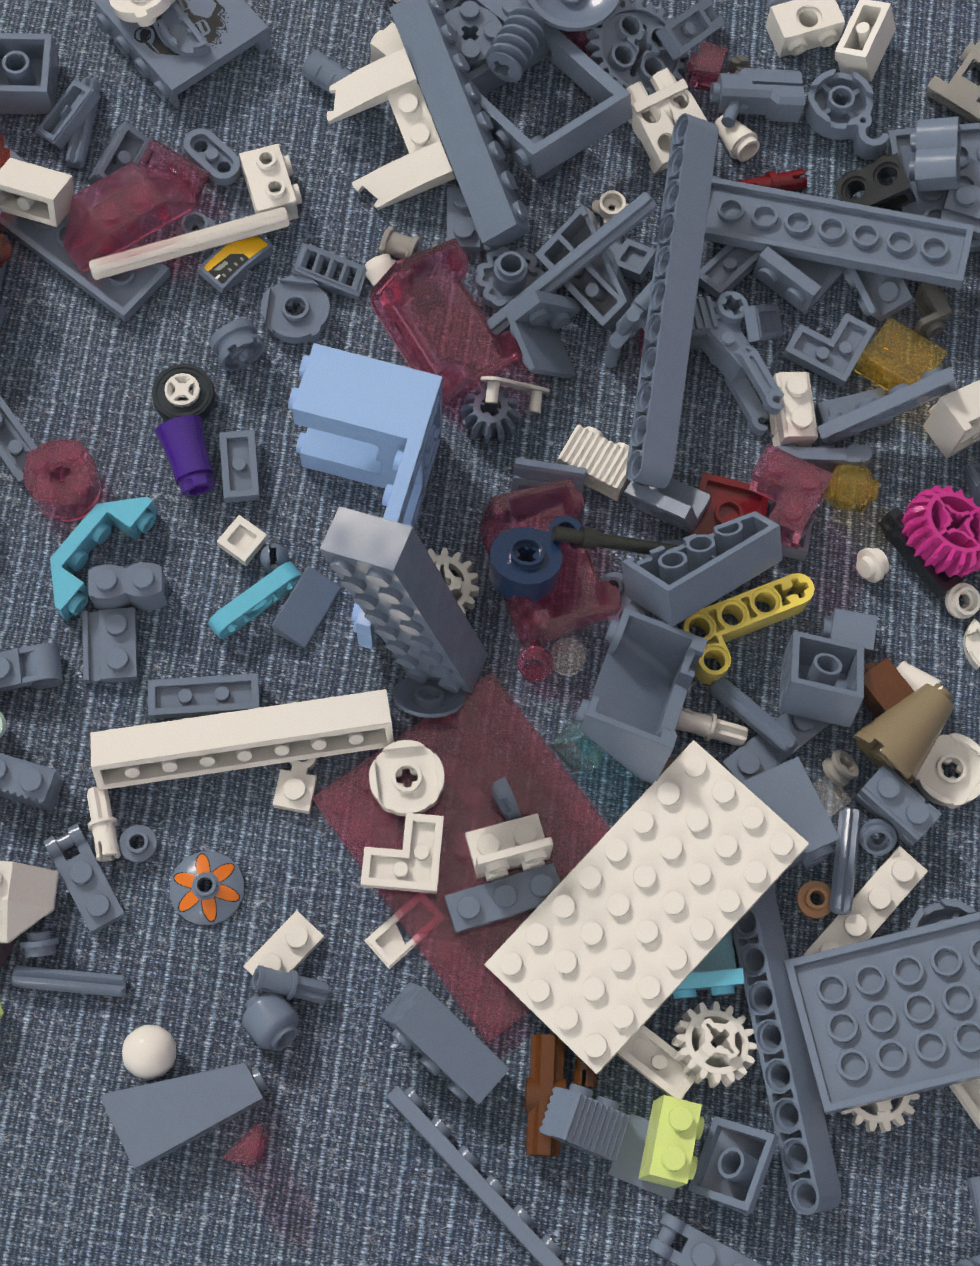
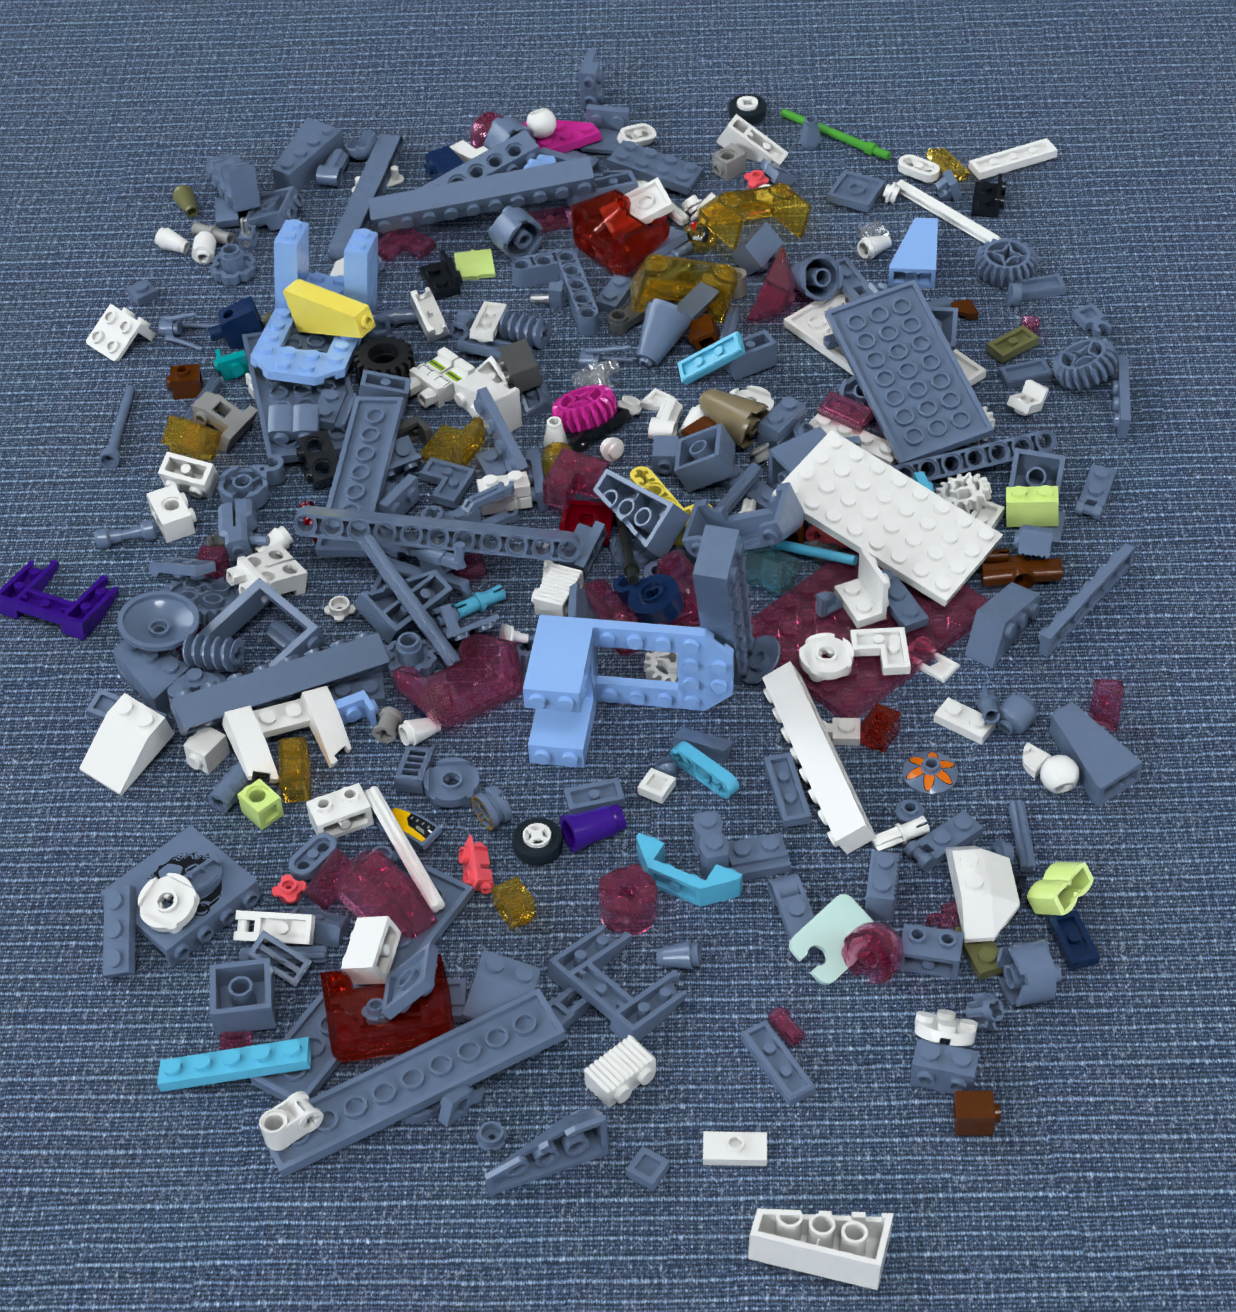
camera: 90 degrees left, 25 degrees down
(92, 358) = (514, 902): none -> clear yellow brick
(110, 109) = (285, 927): none -> white plate
(145, 325) = (474, 861): none -> coral hinge
(172, 139) = (291, 895): none -> coral plate
(198, 1030) = (1033, 759): none -> white tile
(281, 831) = (880, 727): none -> clear red brick
(297, 116) = (260, 804): none -> yellowish green brick
(342, 140) = (294, 769): none -> clear yellow brick
(432, 214) = (356, 707): none -> light blue bracket
(598, 368) = (480, 601): none -> medium azure pin
(615, 812) = (817, 552): none -> medium azure bar
(763, 322) = (445, 501): sand blue tile -> none
(901, 490) = (554, 431): none -> white cone
(905, 898) = (845, 411): none -> clear pink plate
(914, 642) = (666, 420): none -> white piece
(921, 1199) = (1030, 400): none -> white bracket
(939, 44) = (191, 437): none -> clear yellow brick

